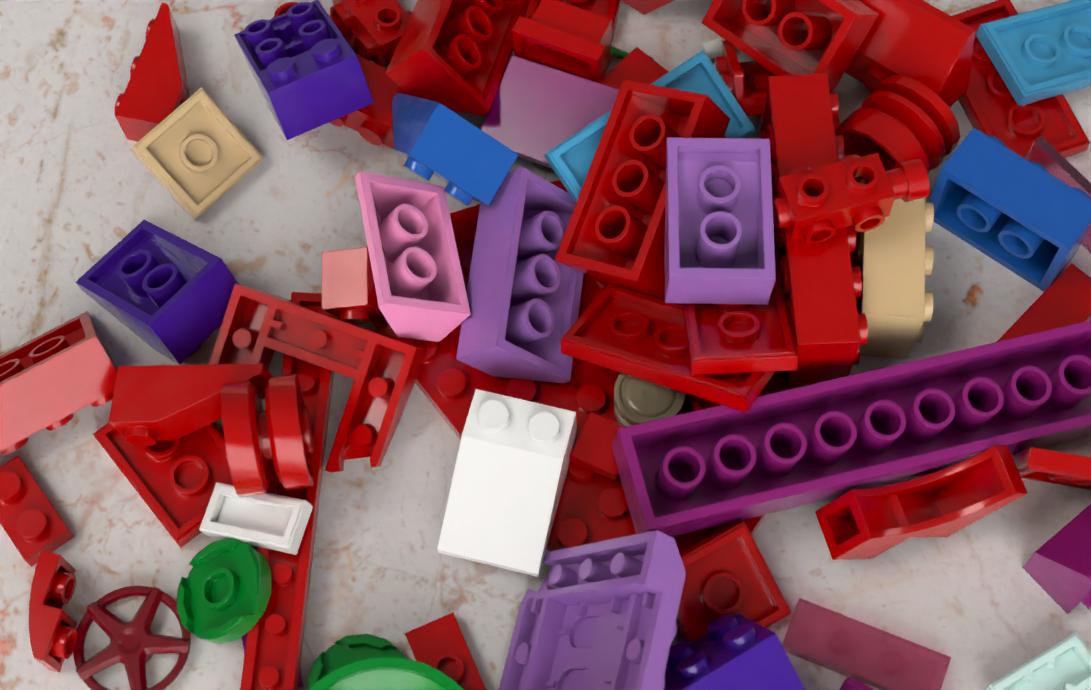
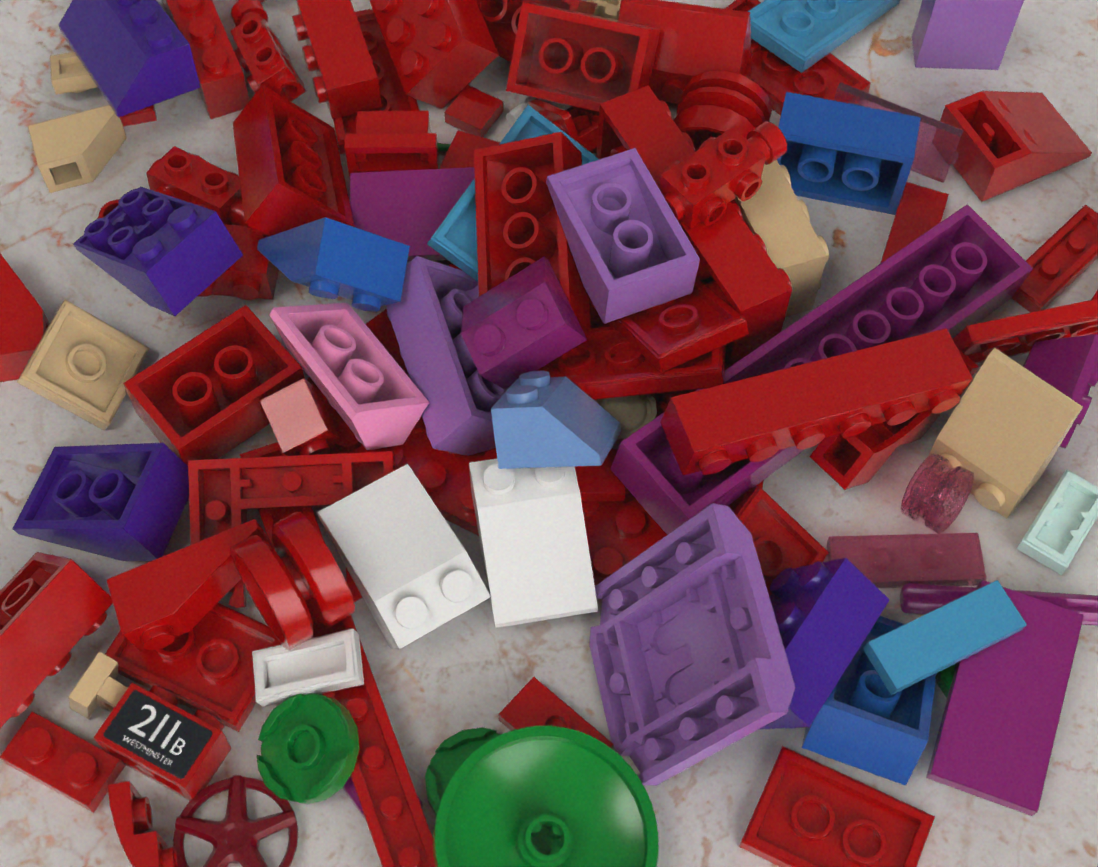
camera: 30 degrees left, 5 degrees down
(77, 458) = (97, 687): none -> tan tile
(109, 531) = (164, 740): none -> brick
(288, 218) = (211, 388): none -> red brick
(382, 451) = (403, 557): none -> white slope
(563, 385) = (550, 424): none -> medium blue slope
(584, 273) = (520, 325): none -> magenta slope
(671, 29) = (474, 111): none -> red tile
(831, 466) = (814, 402): none -> red brick
(925, 601) = (937, 493): none -> clear pink wheel
(1014, 573) = (1005, 431): none -> tan slope

